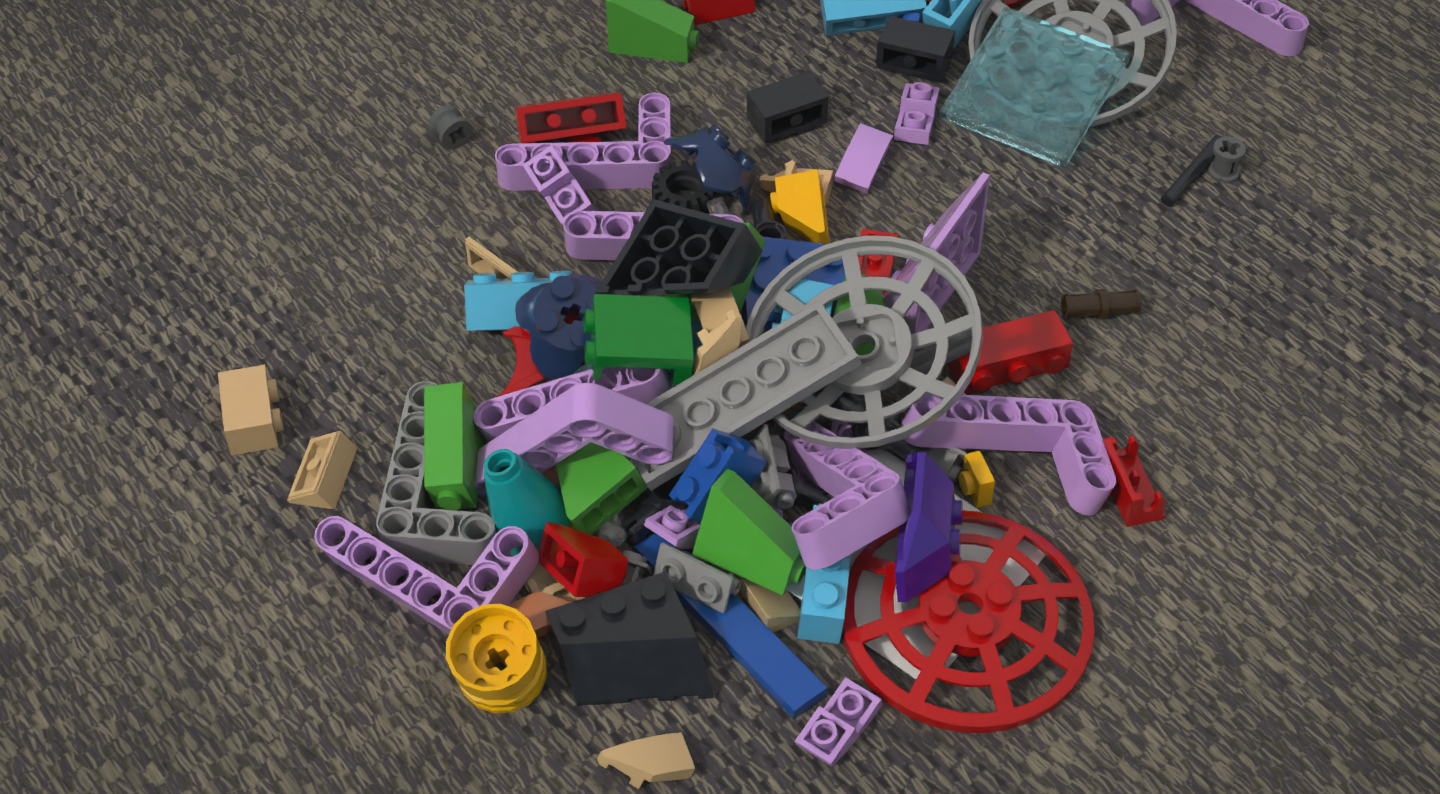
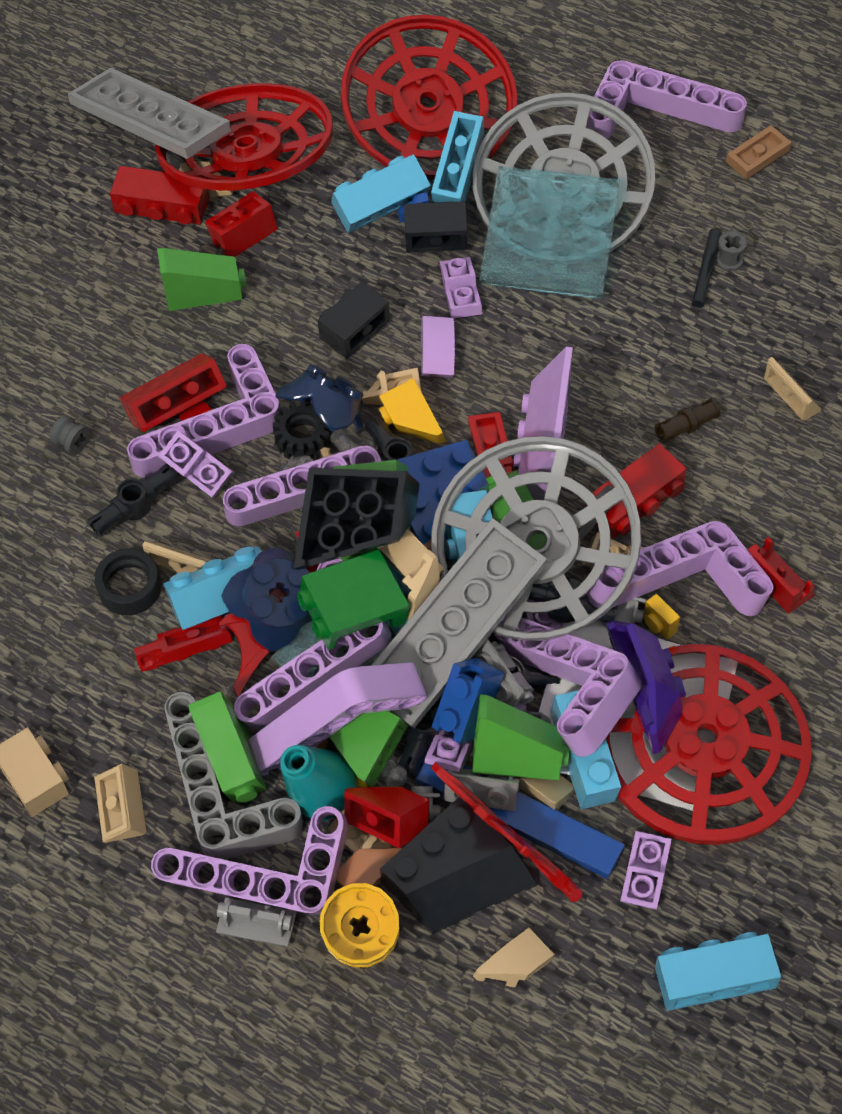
camera: 20 degrees left, 10 degrees up
(397, 625) = (255, 921): none -> light grey hinge
(436, 252) = (136, 602): none -> black tyre
(459, 344) = (180, 644): none -> red hinge
(481, 201) = (122, 509): none -> black pin
(680, 590) = (549, 869): none -> red animal
(1232, 310) = (790, 390): none -> tan slope
(1303, 78) = (758, 152): none -> medium nougat plate

